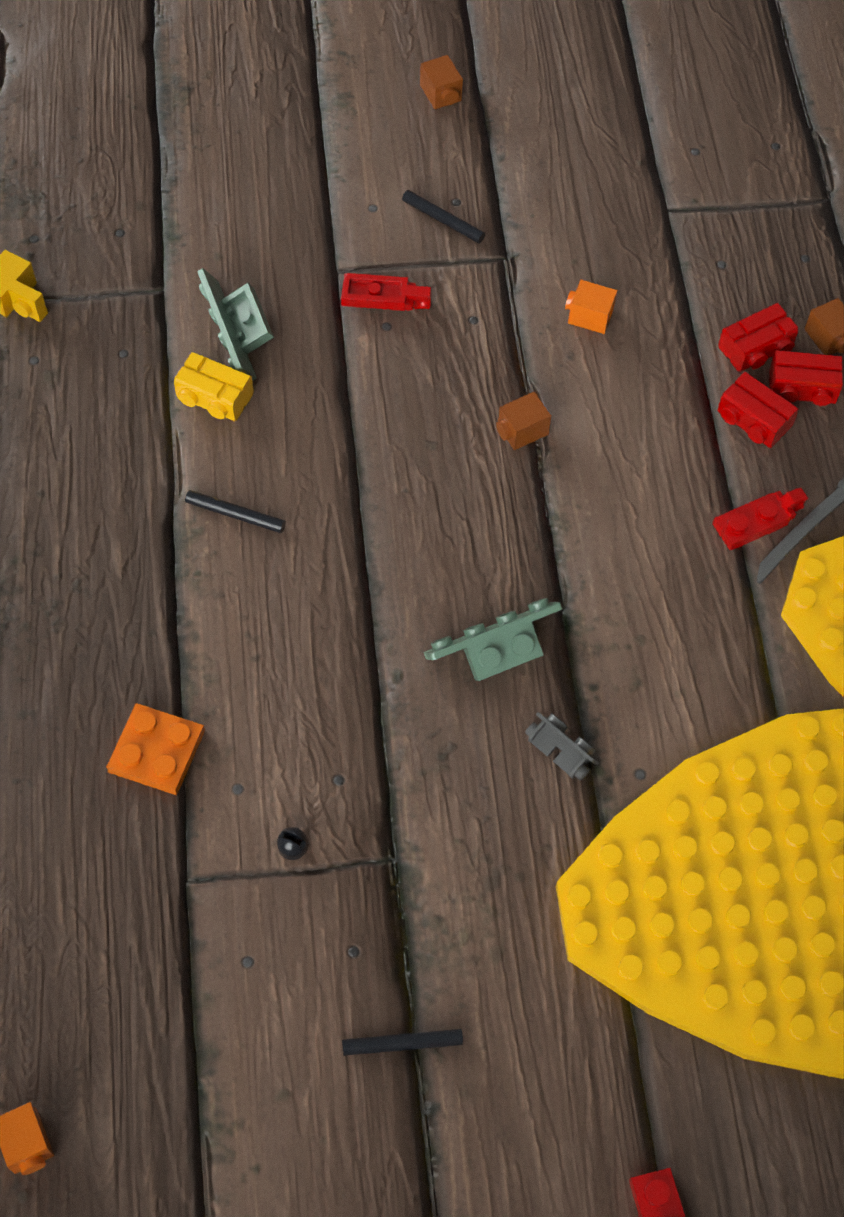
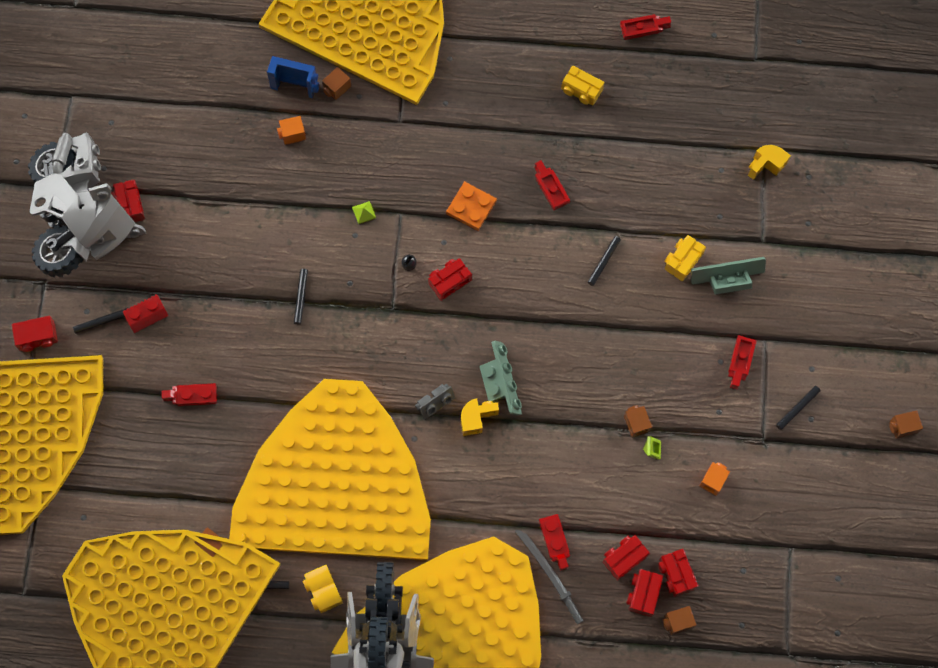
camera: 100 degrees right, 10 degrees up
(98, 614) = (551, 186): none -> red hinge
(196, 951) = (364, 212): none -> lime slope
(317, 757) = (450, 278): none -> red brick
(563, 399) = (653, 447): none -> lime slope
(577, 676) = (472, 415): none -> yellow brick

